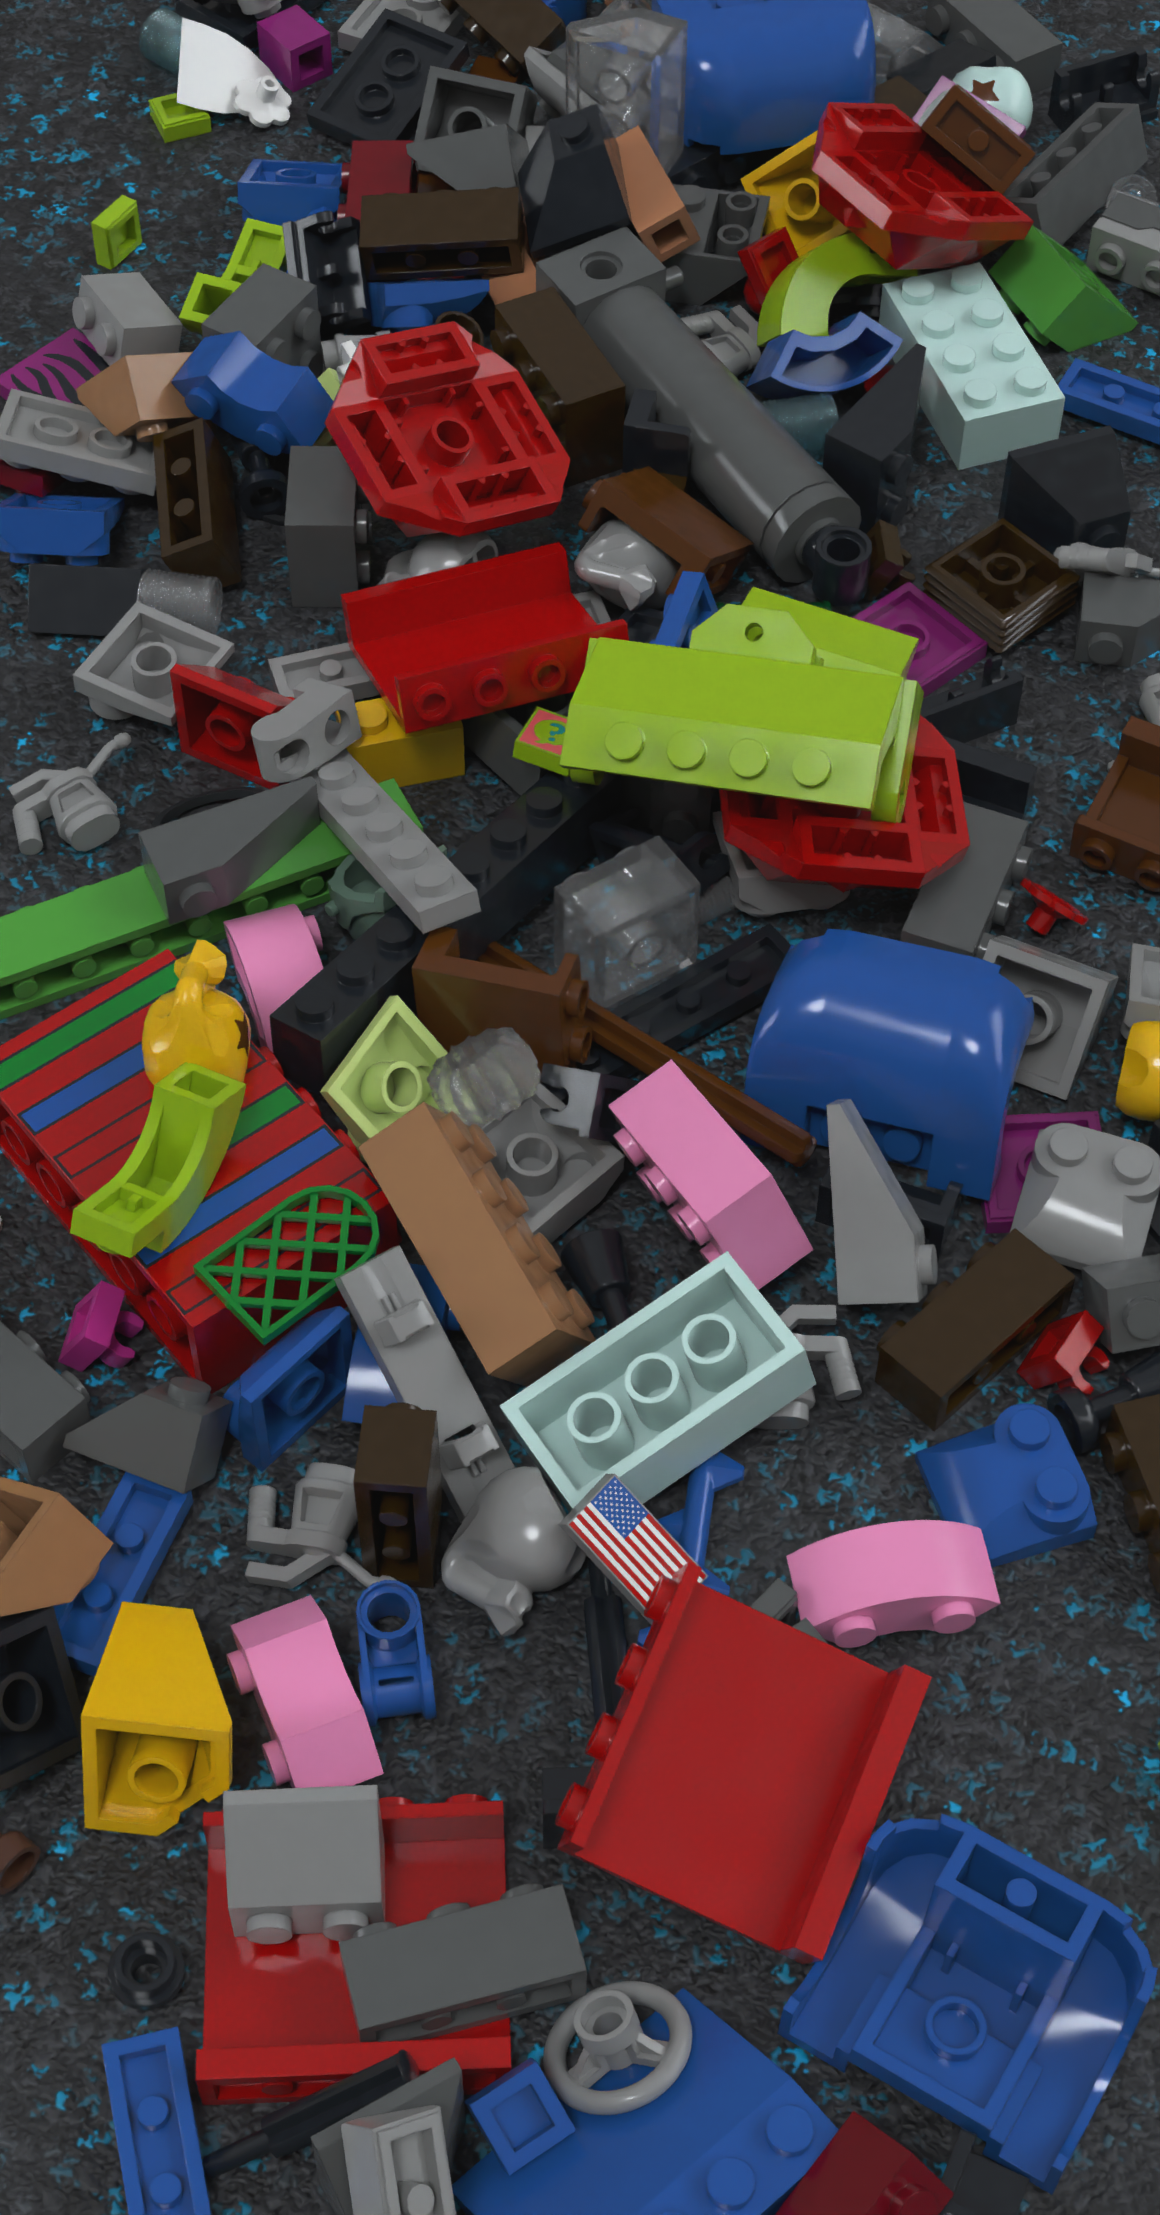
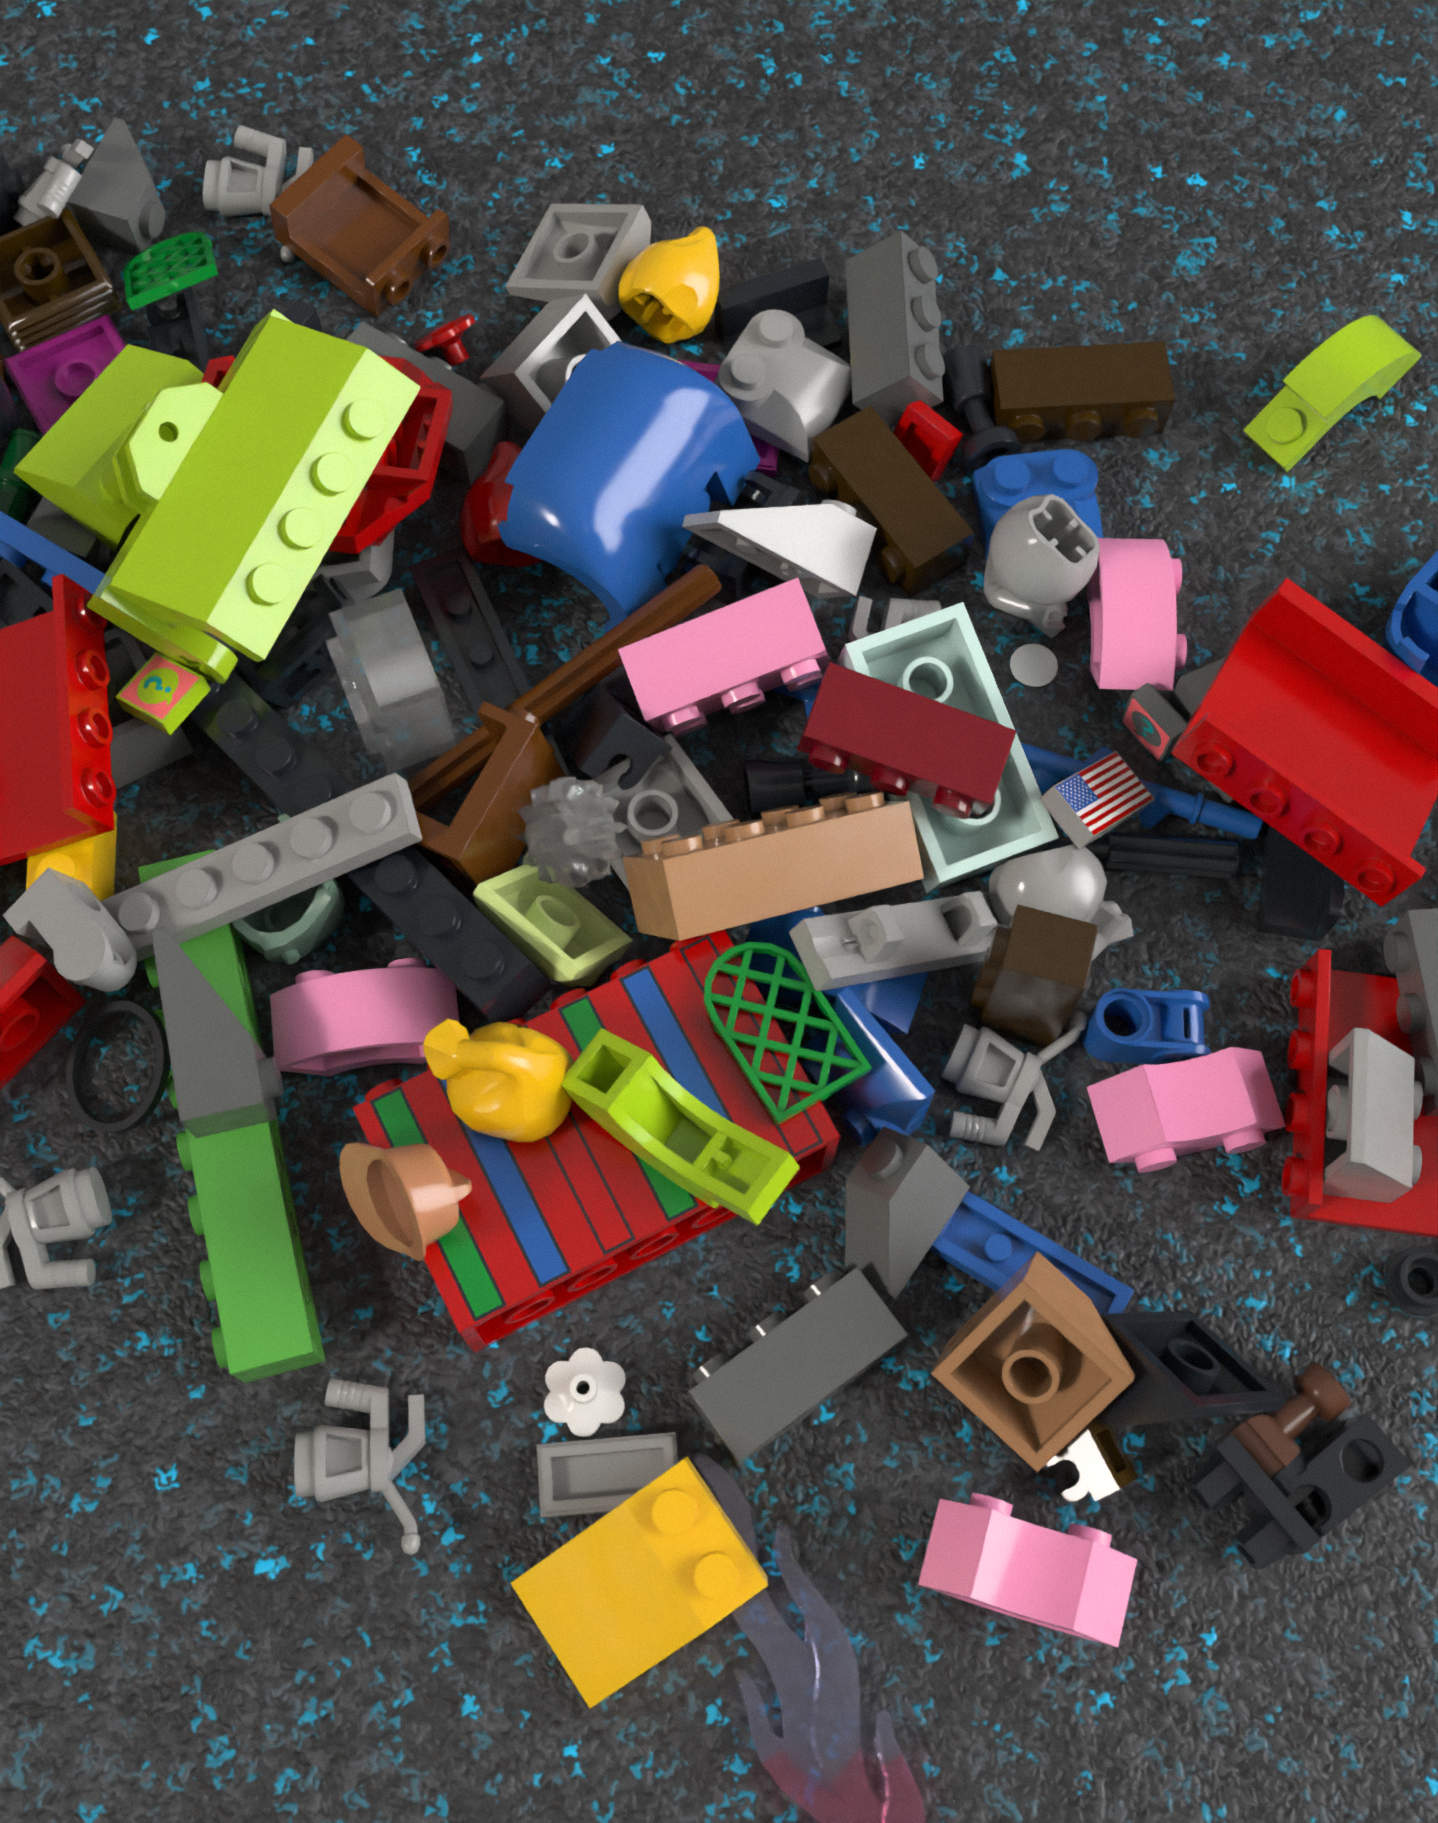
camera: 80 degrees left, 15 degrees up
(76, 984) = (402, 1194): none -> nougat piece
(94, 1328) = (753, 1259): dark pink tile -> none
(153, 1724) = (1197, 1235): yellow slope -> none
(621, 1316) = (905, 742): none -> dark red brick
(821, 1513) = (1033, 665): none -> white sticker
(924, 1462) = (1039, 561): none -> light grey piece
(1034, 676) = (153, 257): none -> green window

